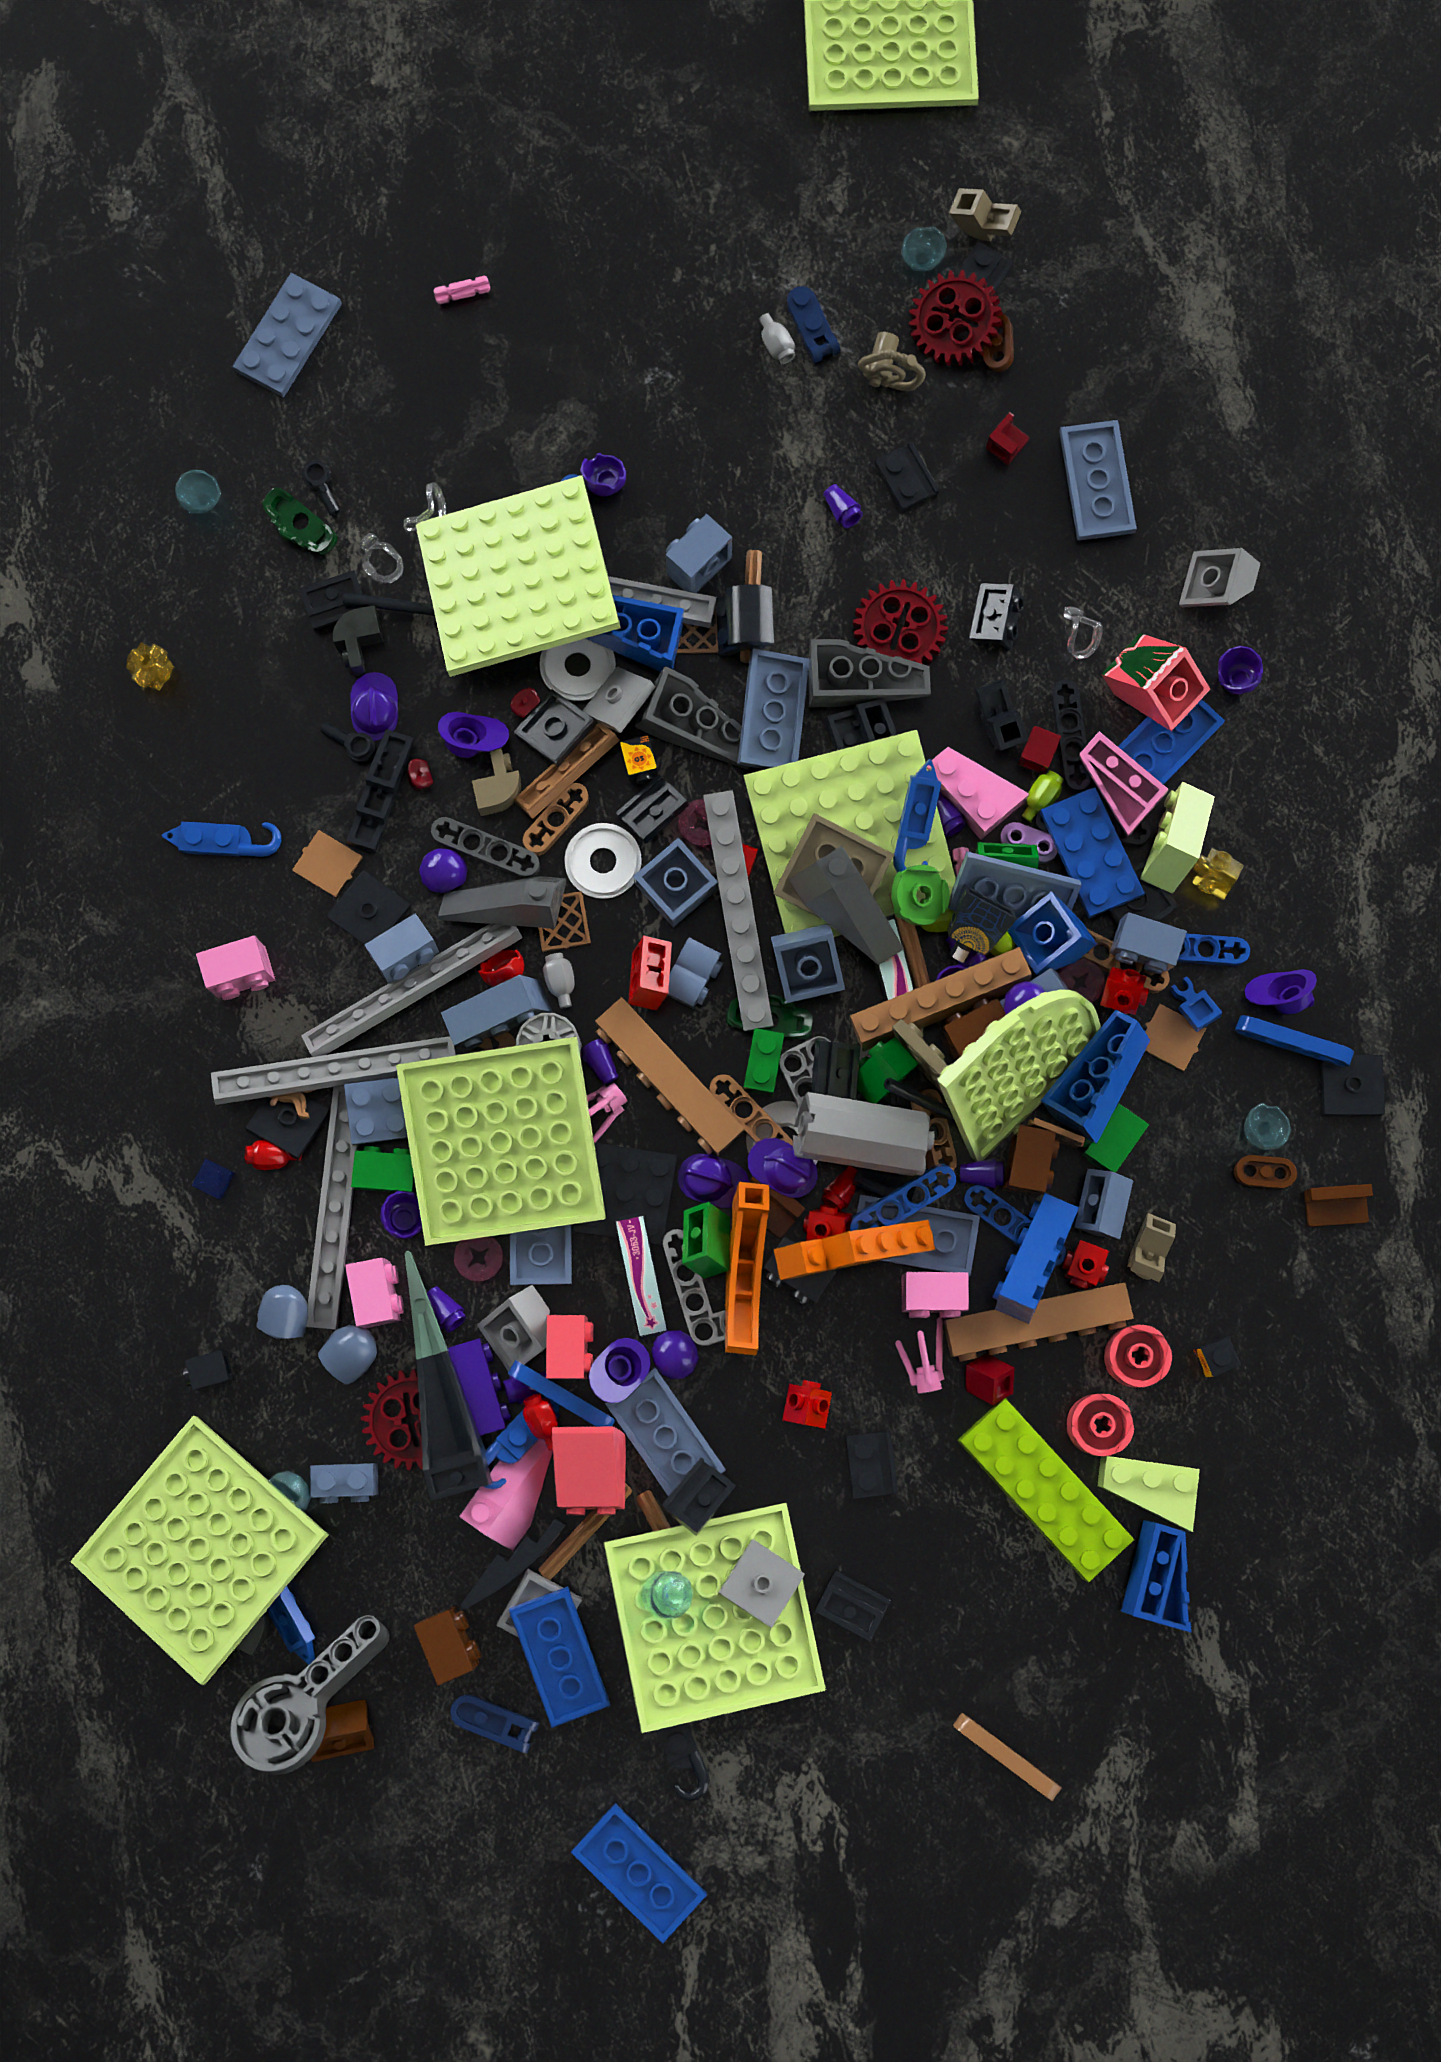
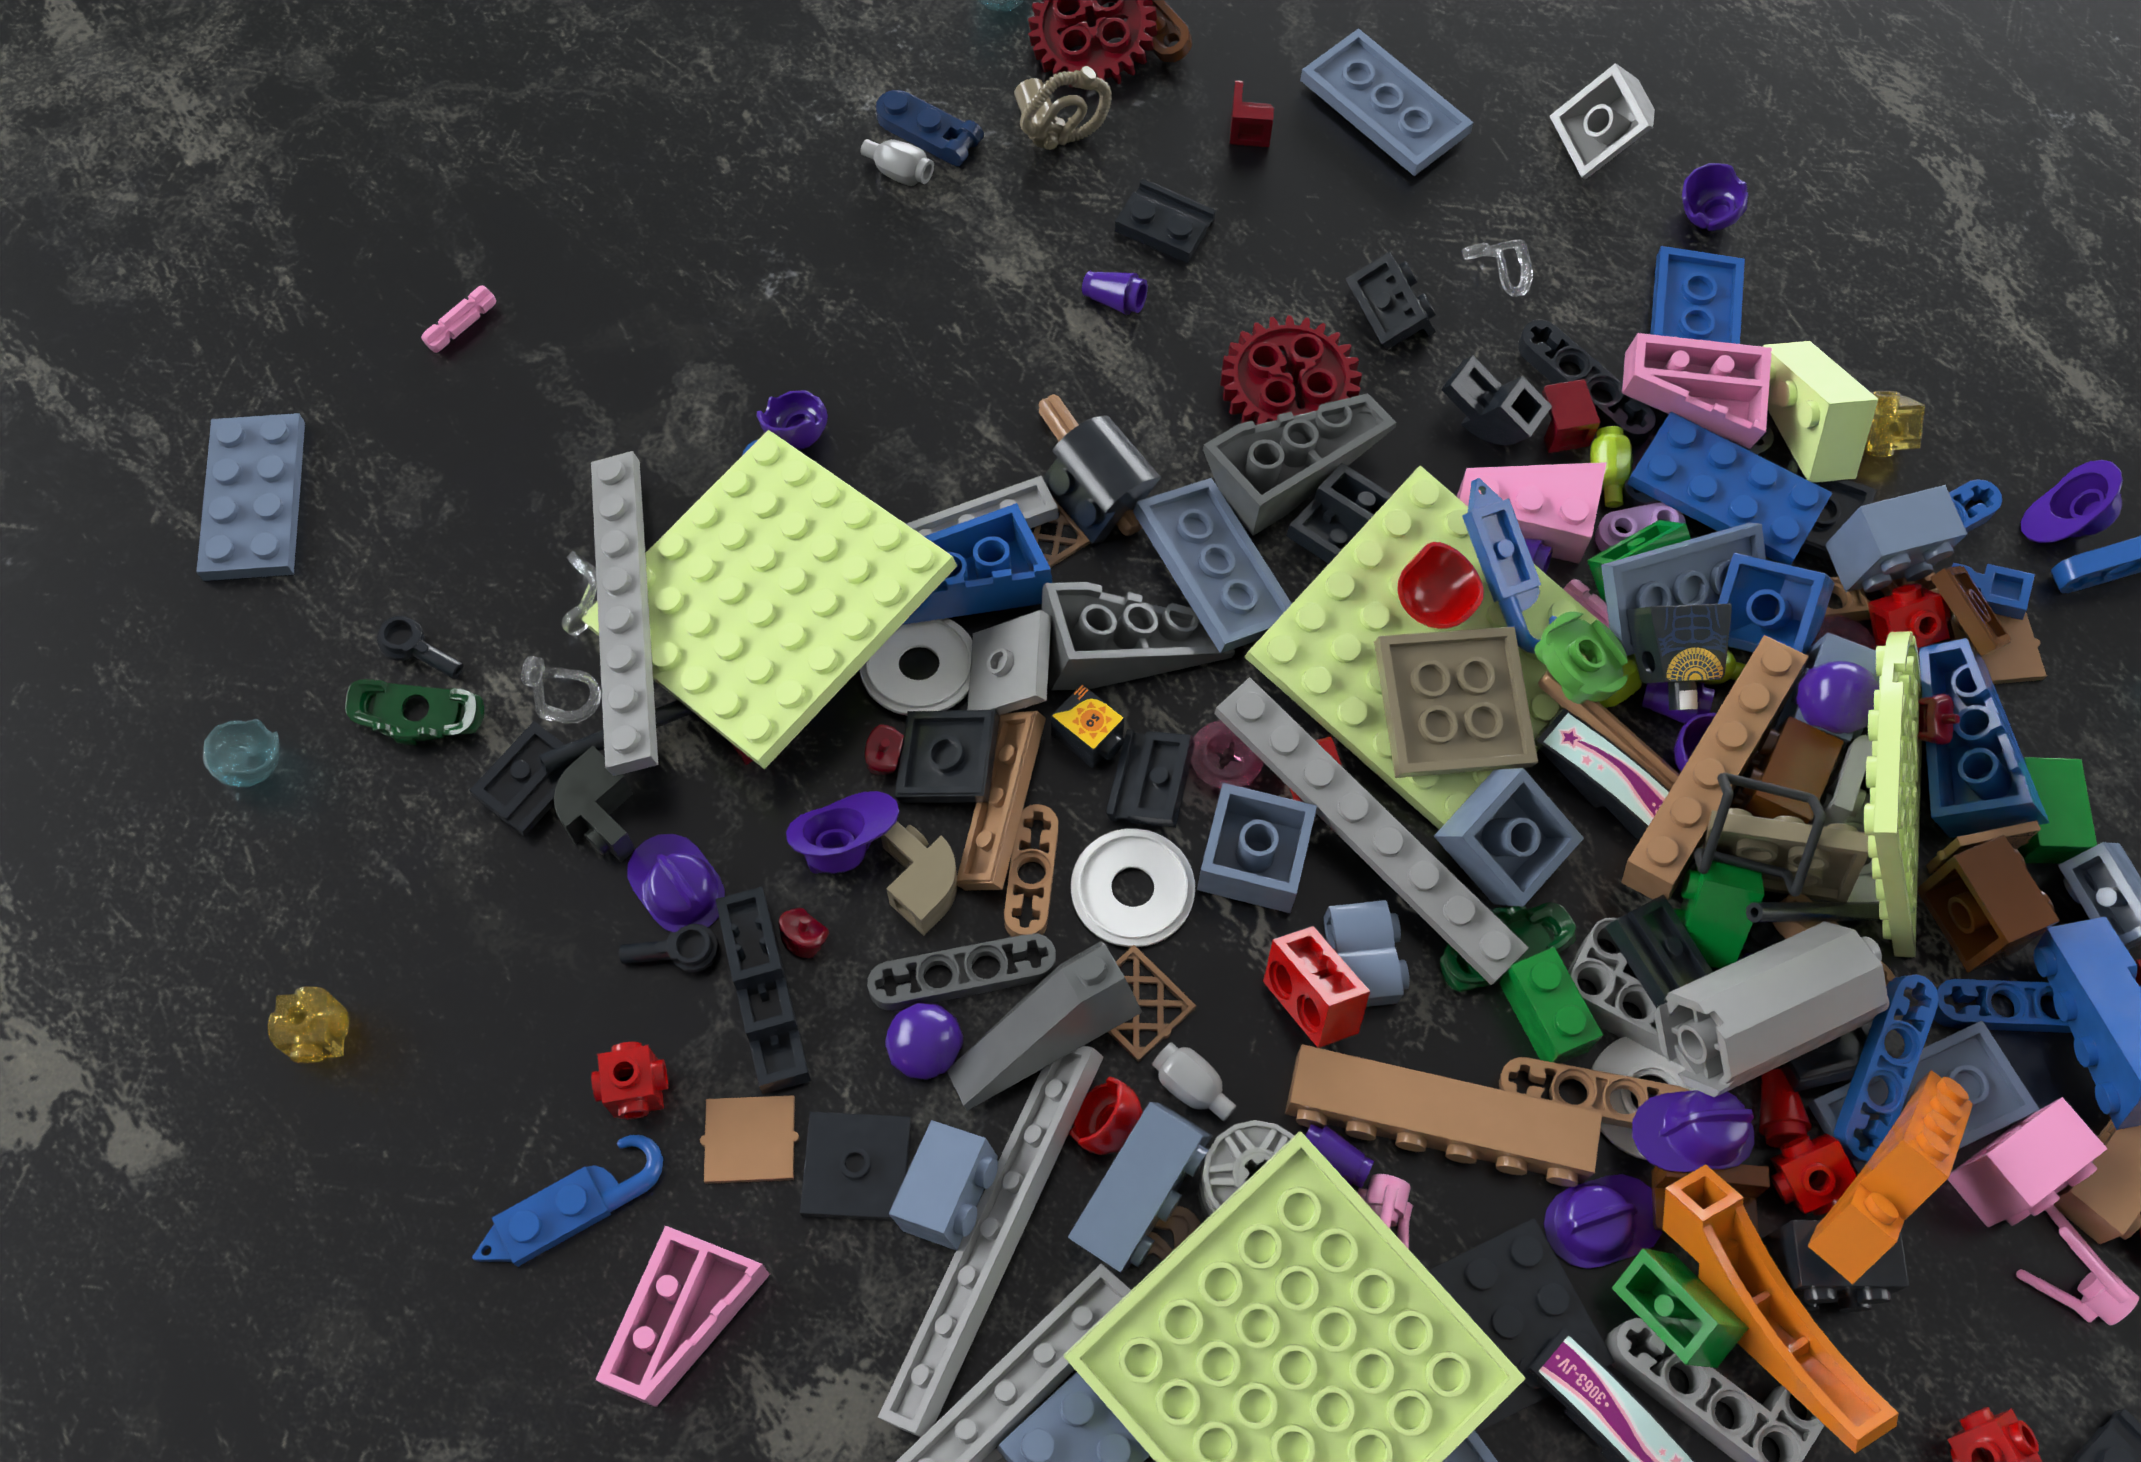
camera: 35 degrees left, 15 degrees down
(236, 968) = (716, 1379): bright pink brick -> none
(237, 918) = (676, 1314): none -> bright pink wedge
(292, 803) = (638, 1094): none -> red brick
(436, 536) = (623, 616): none -> light grey plate
(698, 554) = (985, 433): sand blue brick -> none
(844, 901) = (1499, 718): dark grey wedge -> none
(869, 806) = (1440, 587): none -> red helmet
(924, 1074) = (1706, 855): none -> black piece
(984, 1173) = (1939, 958): dark purple cone -> none
(1083, 1052) = (1937, 719): none -> dark red piece
(1157, 680) = (1637, 254): coral slope -> none
(1159, 1007) = (1970, 610): none -> reddish brown plate

